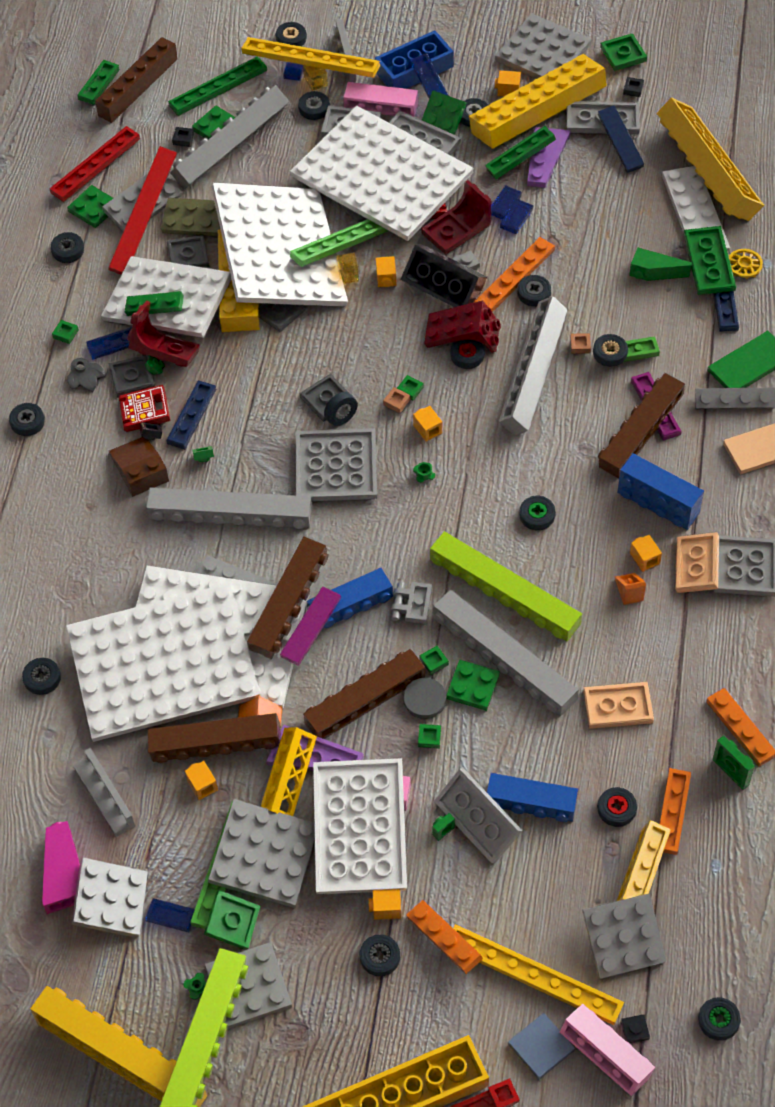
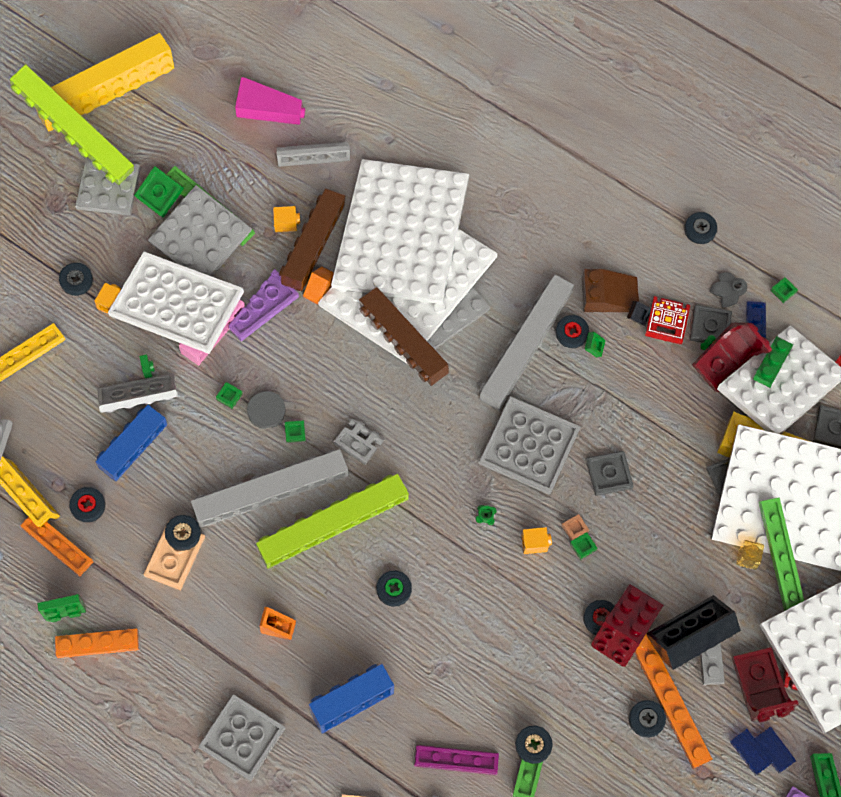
camera: 110 degrees right, 10 degrees up
(51, 676) = (433, 145): black bush -> none
(109, 897) = (223, 121): plate -> none
(170, 915) = (193, 159): clear blue tile -> none
(189, 473) = (576, 339): none -> black bush
(189, 984) = (131, 150): green plate -> none
(191, 415) = (644, 356): dark blue tile -> none
(283, 765) = (264, 277): yellow fence -> none
(310, 626) = (371, 345): magenta tile -> none
(340, 408) = (584, 471): black bush -> none
(359, 595) = (387, 394): blue brick -> none
(364, 694) = (292, 365): reddish brown brick -> none
(386, 271) = (730, 588): light orange brick -> none
(444, 937) = (57, 322): orange plate -> none
(473, 685) = (257, 452): green plate -> none
(533, 366) = (553, 665): brick -> none
(580, 343) = (561, 726): nougat plate -> none
(598, 693) = (176, 525): none -> black bush
(642, 424) = (435, 727): reddish brown brick -> none
(645, 553) = (302, 655): light orange brick -> none
(697, 562) = (267, 695): light nougat tile -> none

